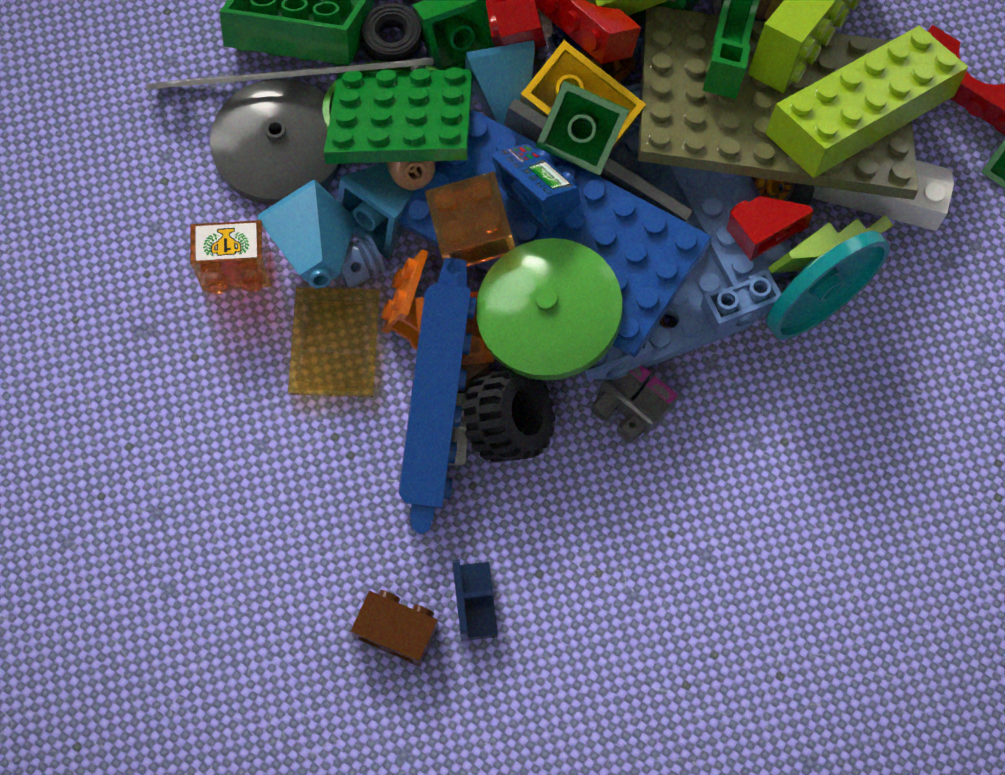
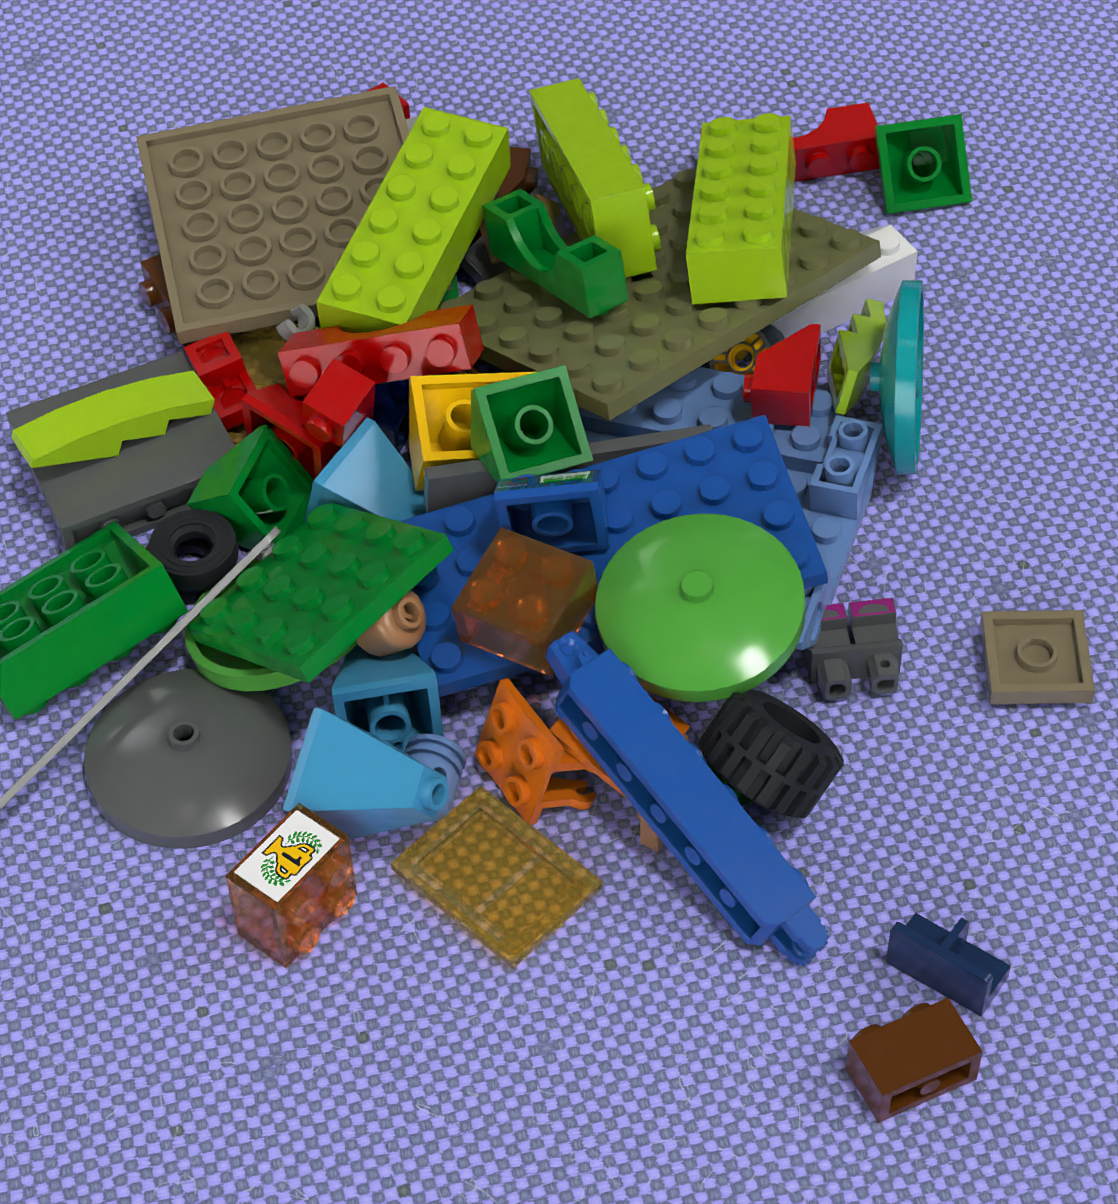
camera: 45 degrees left, 20 degrees down
(716, 498) = (1036, 657): none -> dark tan plate

